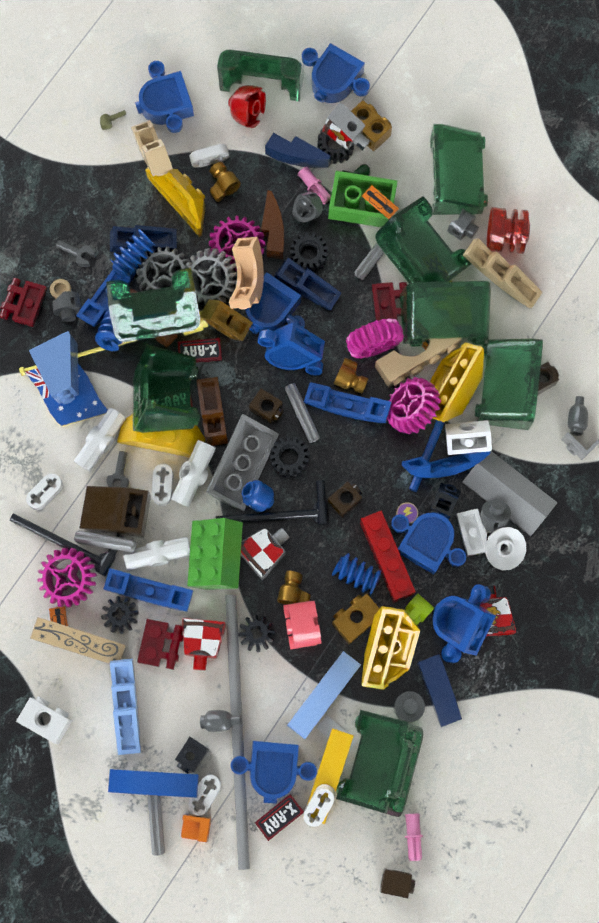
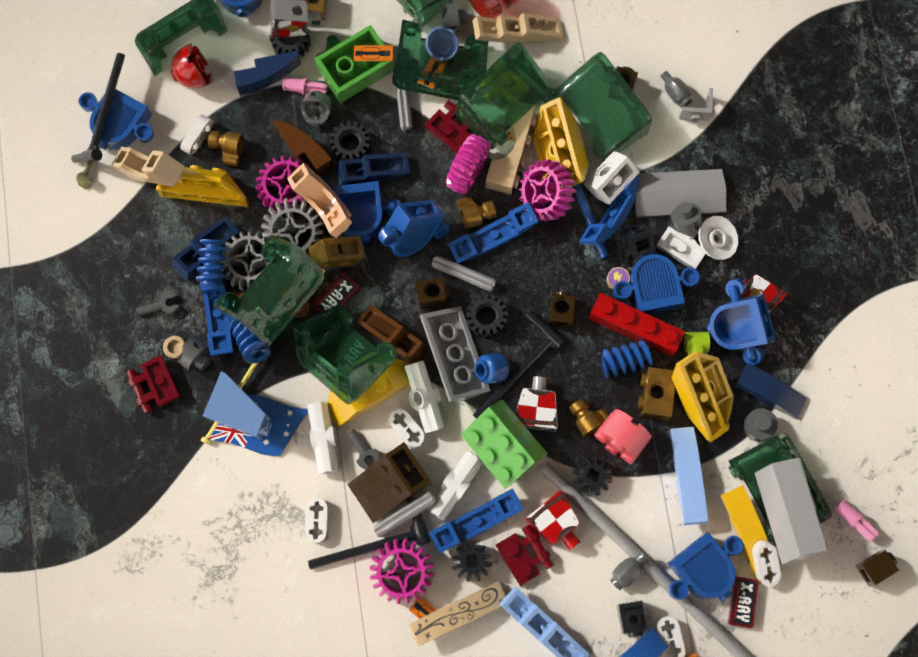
camera: 40 degrees left, 0 degrees up
(125, 108) = (93, 152): none -> black bar
(369, 784) = (791, 510): none -> light grey slope
(417, 249) = (432, 66): none -> orange sticker
(436, 237) = (441, 43): none -> medium blue hair

